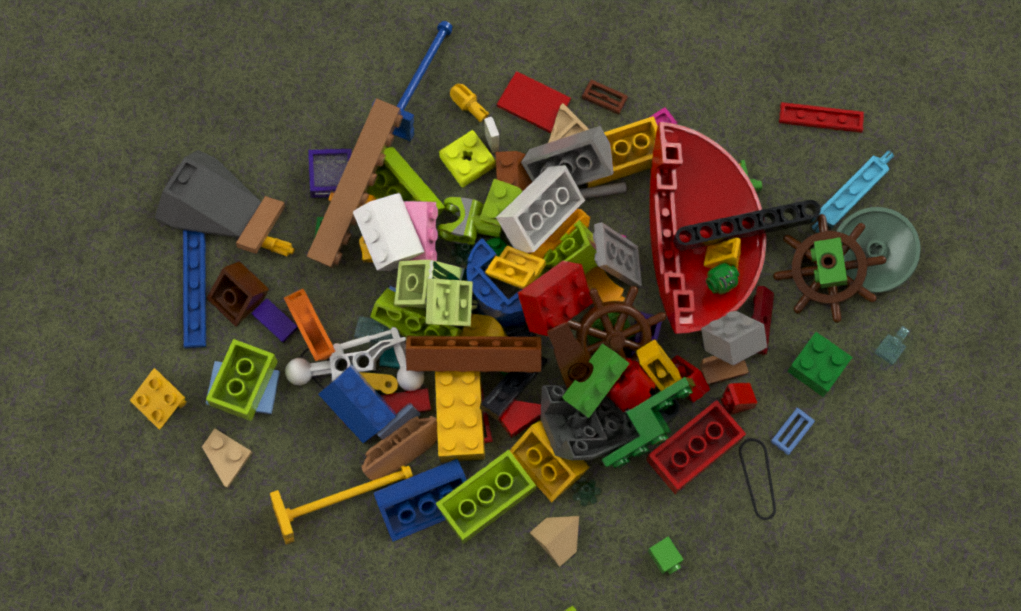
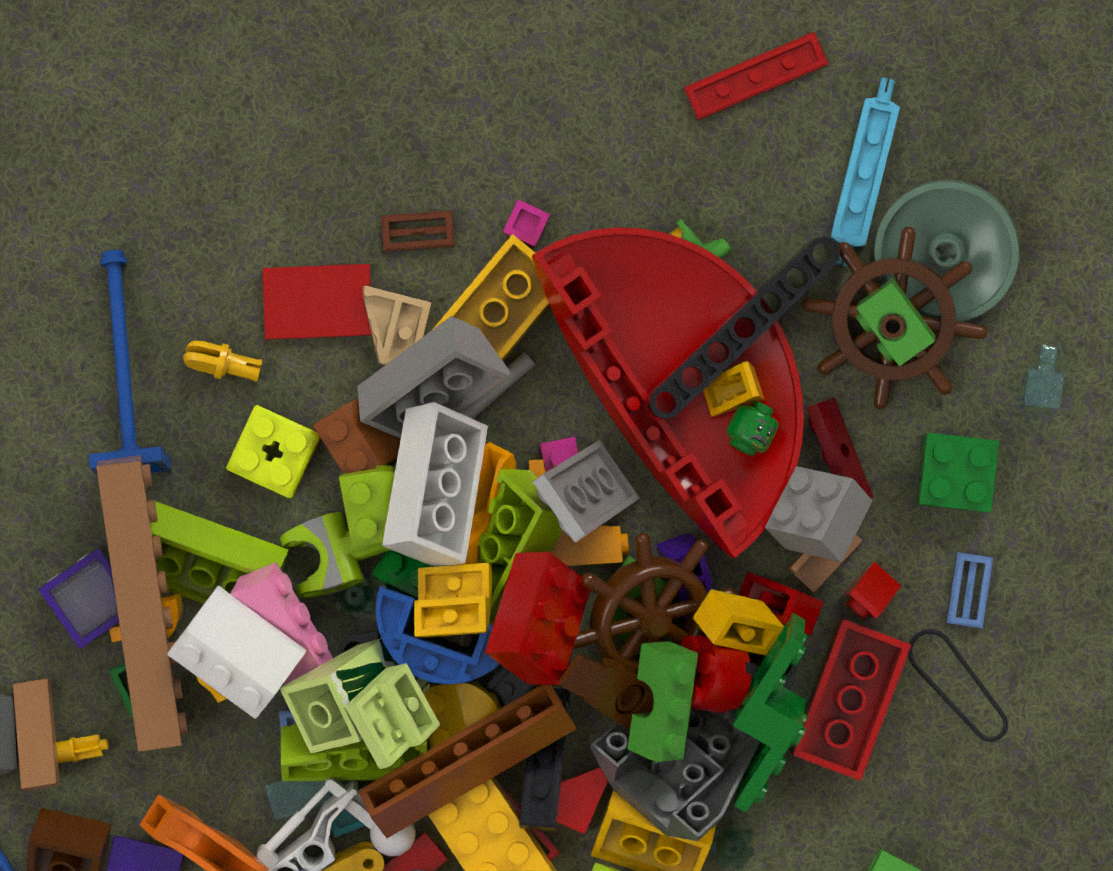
camera: 30 degrees left, 15 degrees up
(491, 134) = (290, 399): white tile -> none

